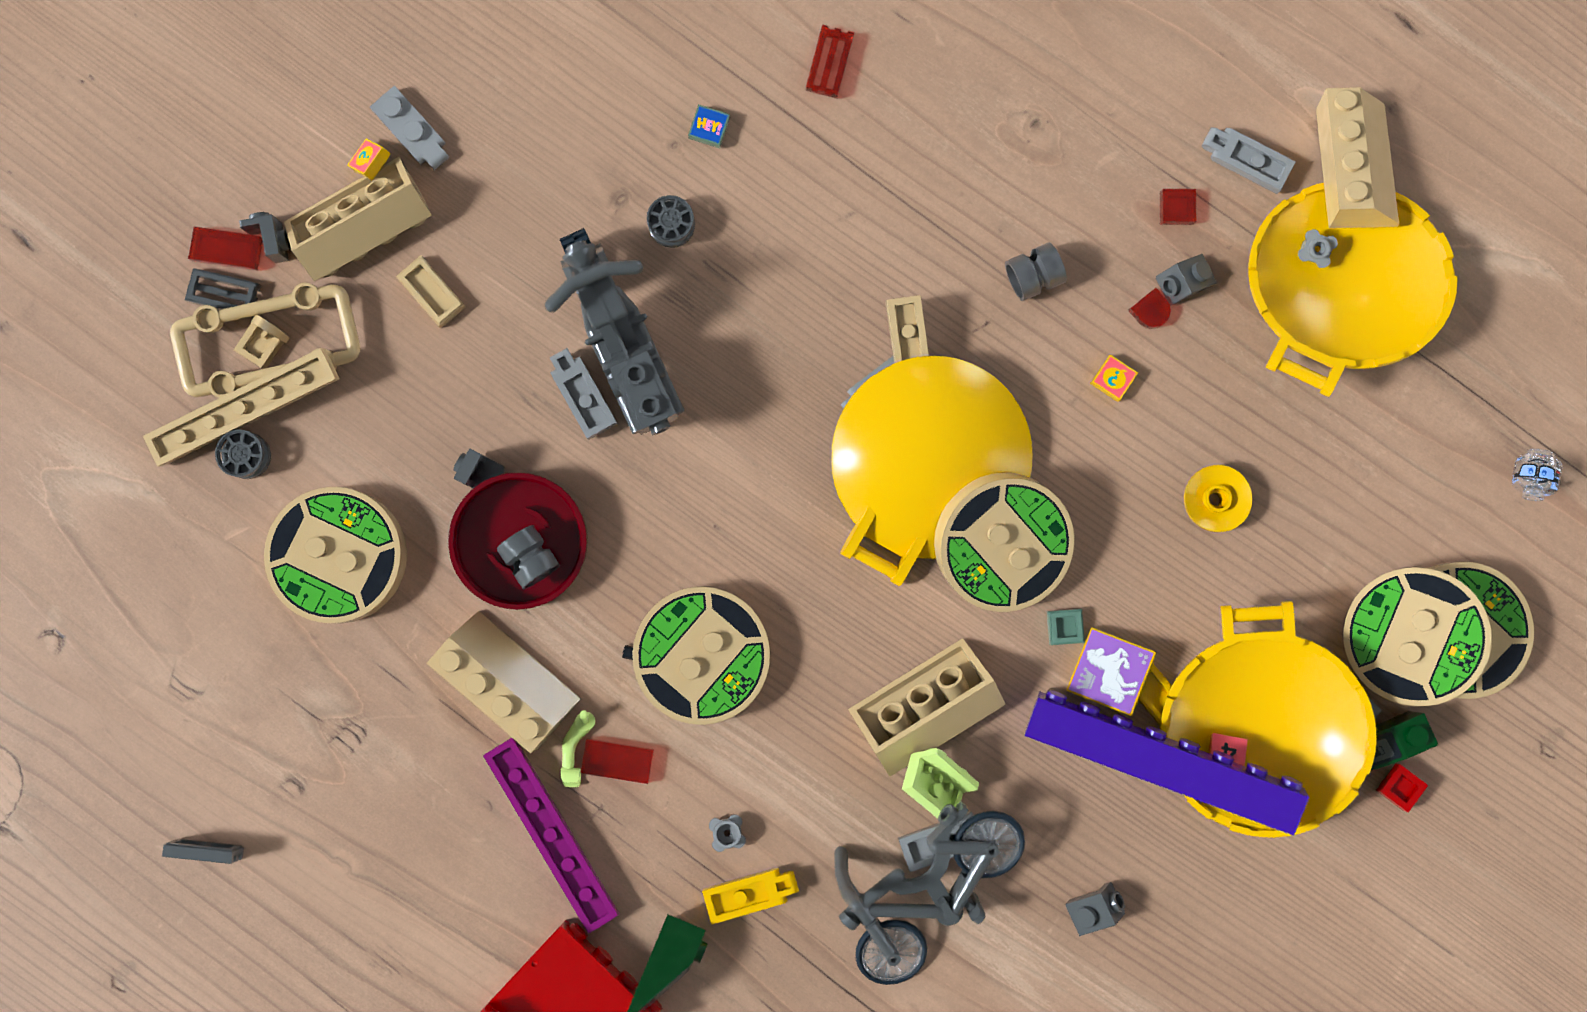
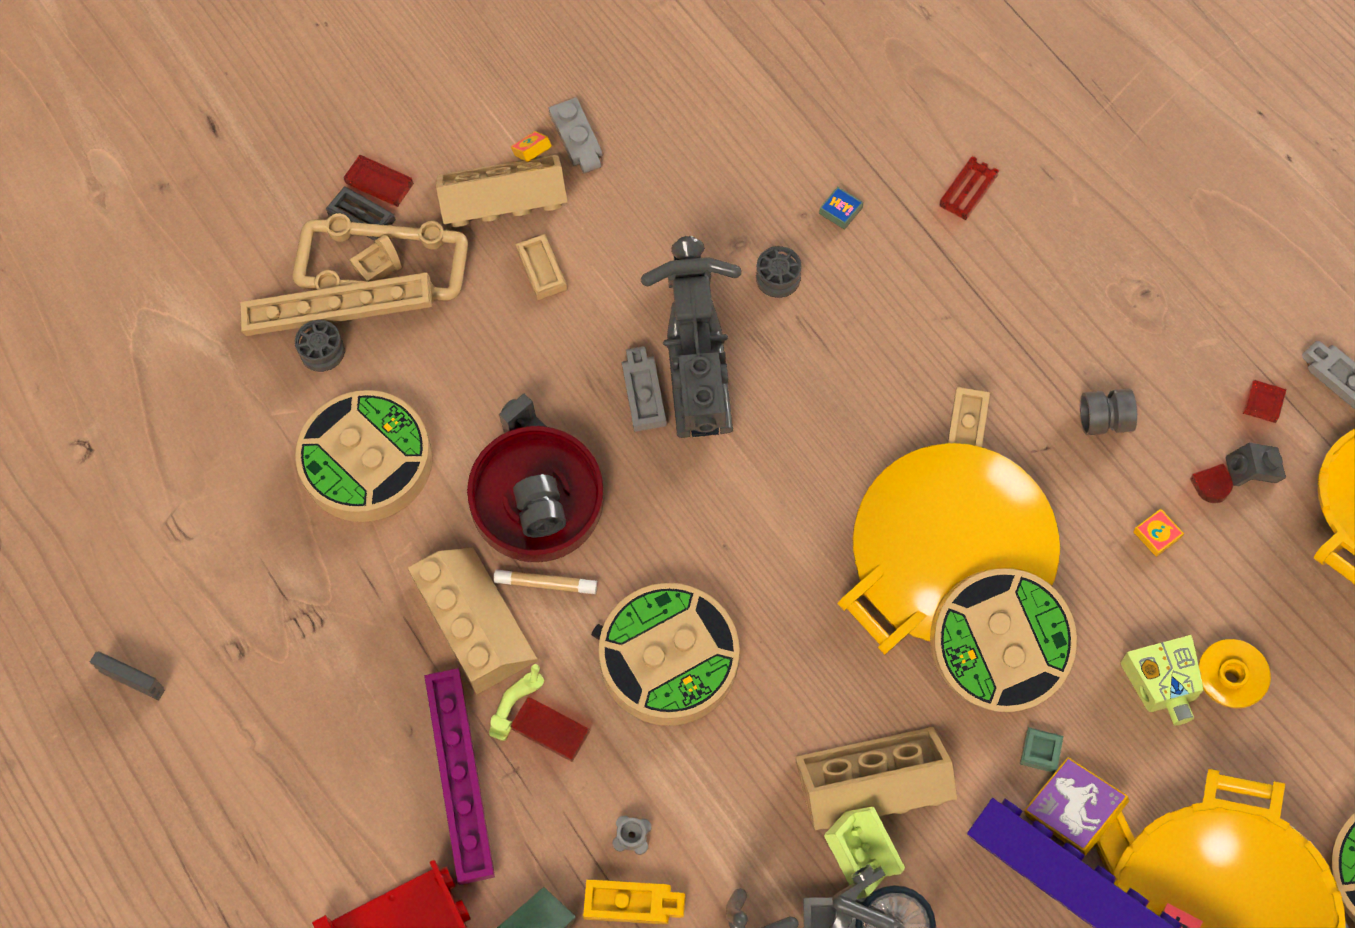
camera: 25 degrees right, 20 degrees down
(273, 236) = (423, 178): dark grey bracket -> none
(560, 621) = (545, 581): none -> tan bar
(1159, 522) = (1166, 677): none -> yellowish green torso

